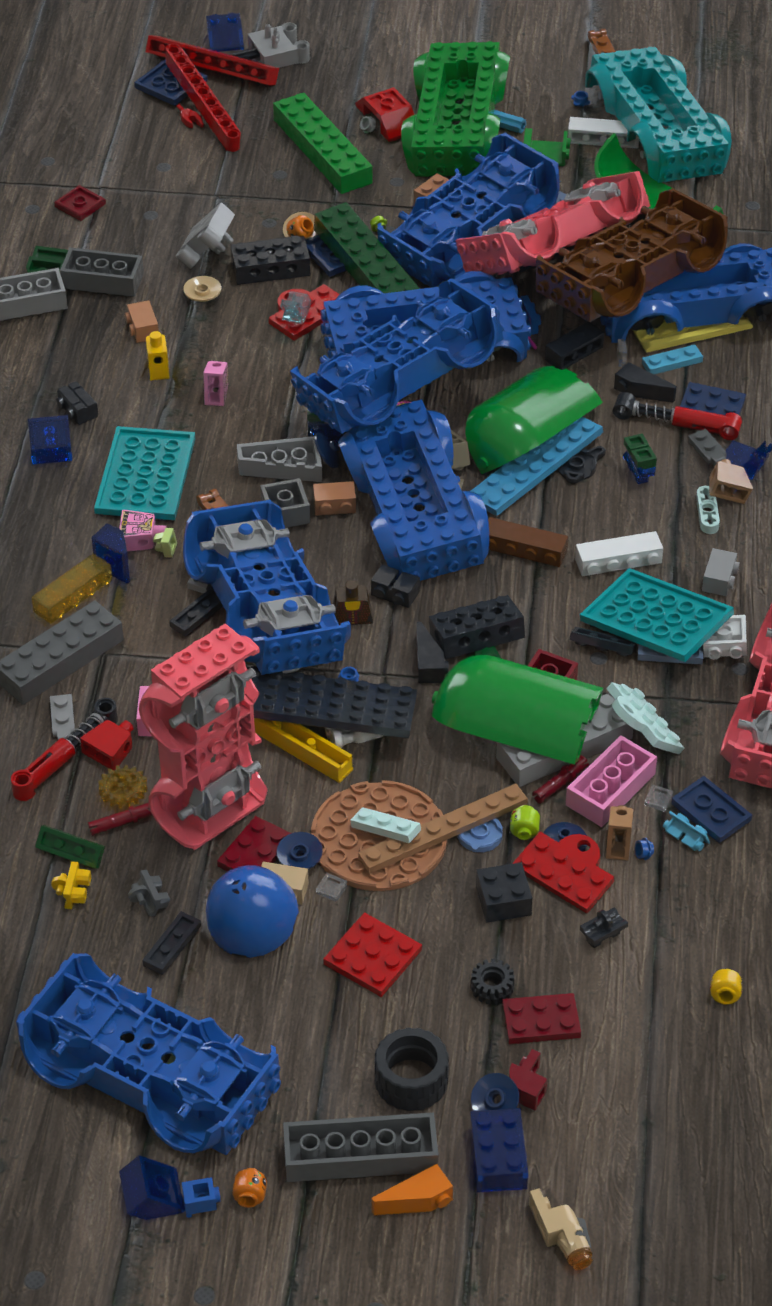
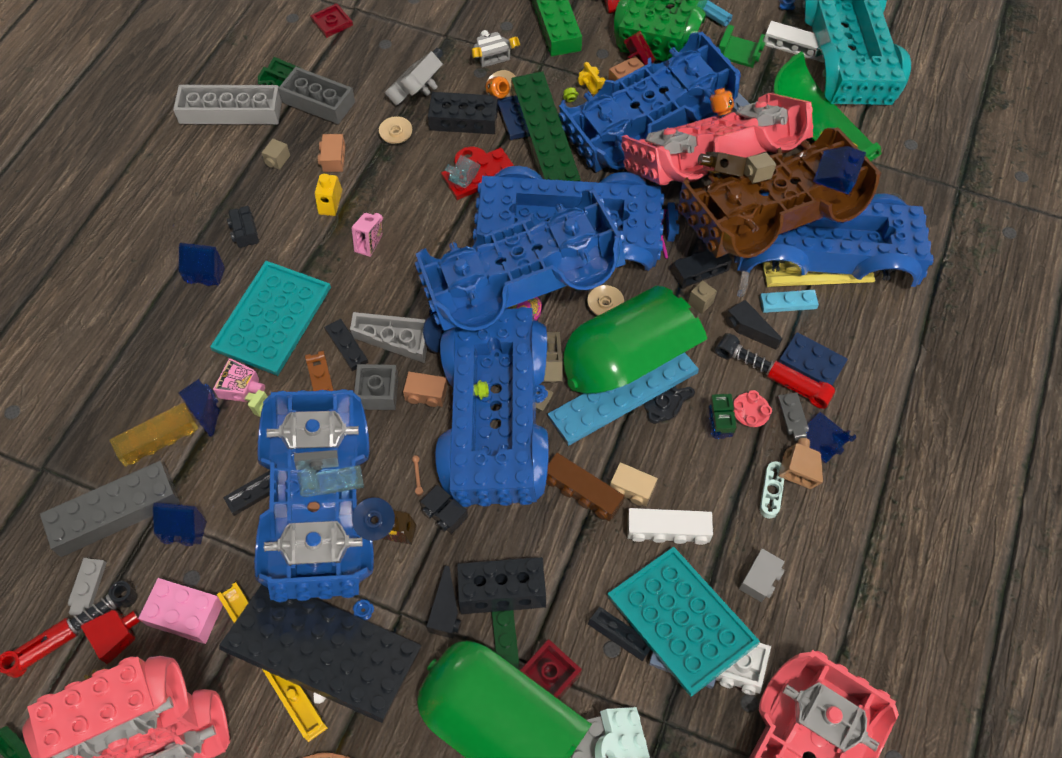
camera: 15 degrees right, 15 degrees up
(80, 333) = (275, 154): none -> dark tan brick
(136, 645) = (178, 524): none -> clear blue slope
(233, 481) = (346, 344): none -> black plate
(264, 551) = (316, 460): none -> dark grey plate
(277, 196) = (493, 48): none -> light grey torso
(284, 565) = (326, 482): none -> clear light blue plate
(338, 580) = (366, 511): none -> dark blue dish
(361, 580) = (419, 491): none -> nougat hinge
(394, 204) = (590, 78): none -> yellow hips
(396, 478) = (481, 389): none -> lime plate
(437, 163) = (638, 47): none -> dark red panel
(484, 389) = (601, 295): none -> tan dish
(547, 192) = (721, 101): none -> orange head
(570, 236) = (722, 163): none -> dark brown torso
(576, 527) = (633, 484): none -> tan brick
(585, 368) = (702, 297): none -> dark tan brick
(607, 232) = (759, 167): none -> dark tan brick
(668, 451) = (751, 409): none -> coral dish
(686, 217) = (839, 168): none -> clear blue slope

